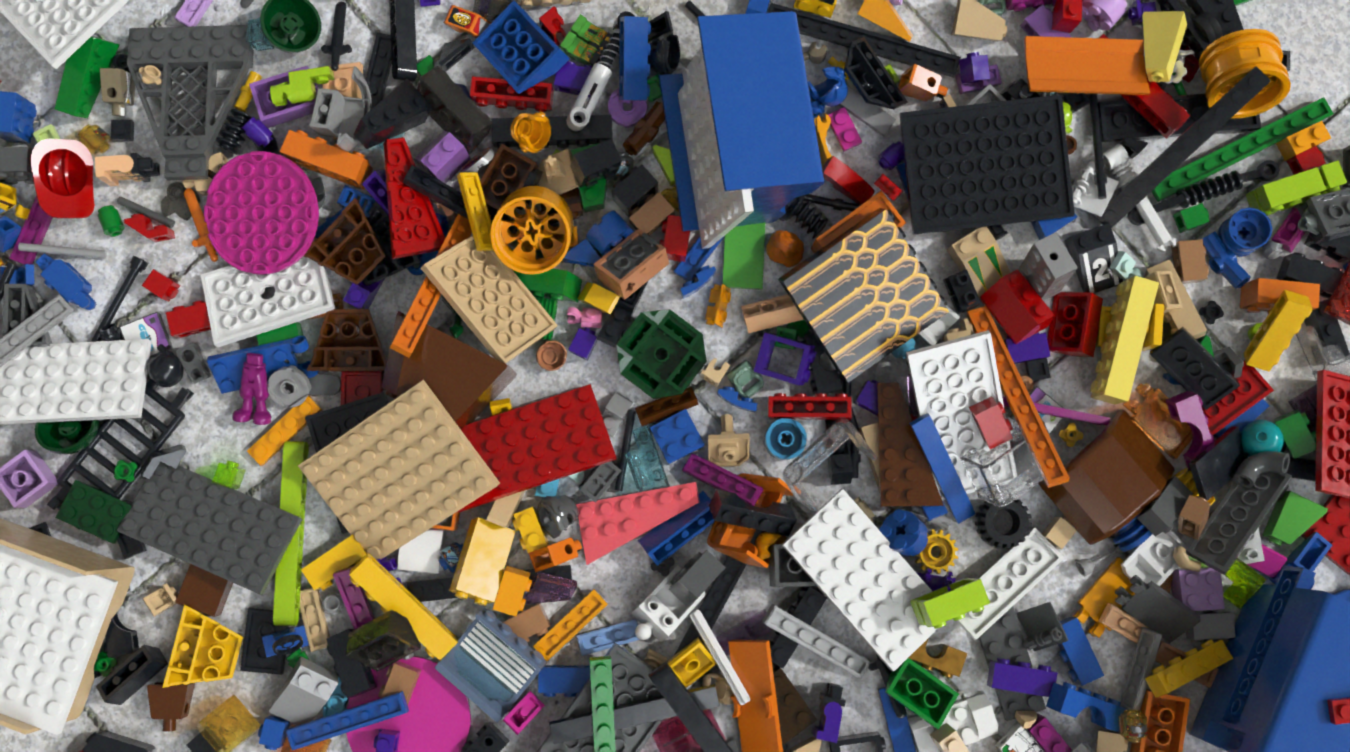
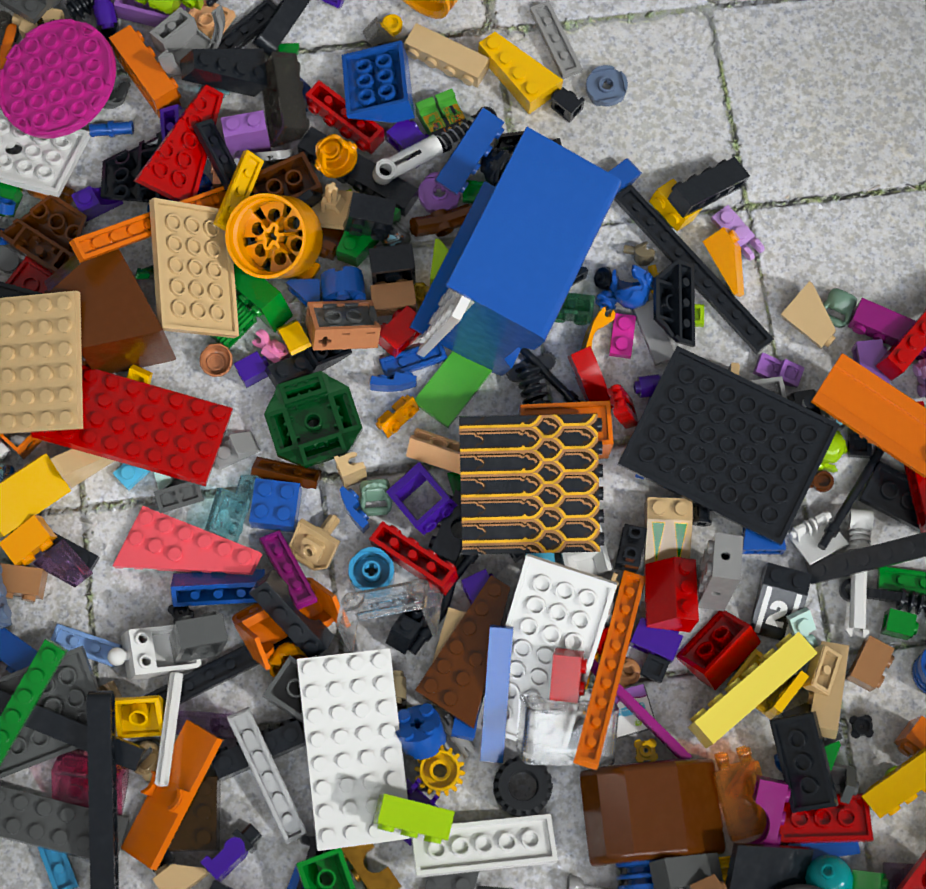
camera: 35 degrees right, 10 degrees down
(347, 191) = (142, 115): blue slope -> none
(348, 245) = (108, 152): reddish brown wedge -> none
(454, 52) = (320, 55): black slope -> none
(466, 21) = (349, 34): slope -> none
(531, 530) = (86, 500): yellow brick -> none
(551, 22) = (421, 81): red hinge -> none
(555, 554) = (91, 534): orange torso -> none
(557, 514) = (119, 499): dark grey helmet -> none
(570, 624) = (58, 609): light orange plate -> none
(625, 449) = (226, 483): black bar -> none
(785, 248) = (492, 399): orange hair -> none
(789, 333) = (443, 480): green plate -> none
(921, 84) = (720, 339): orange torso -> none
(974, 68) = (778, 355): dark purple brick -> none
(1059, 532) = (570, 834): tan brick -> none
(1133, 146) = (884, 522): black slope -> none
(1224, 261) = (904, 684): blue piece -> none

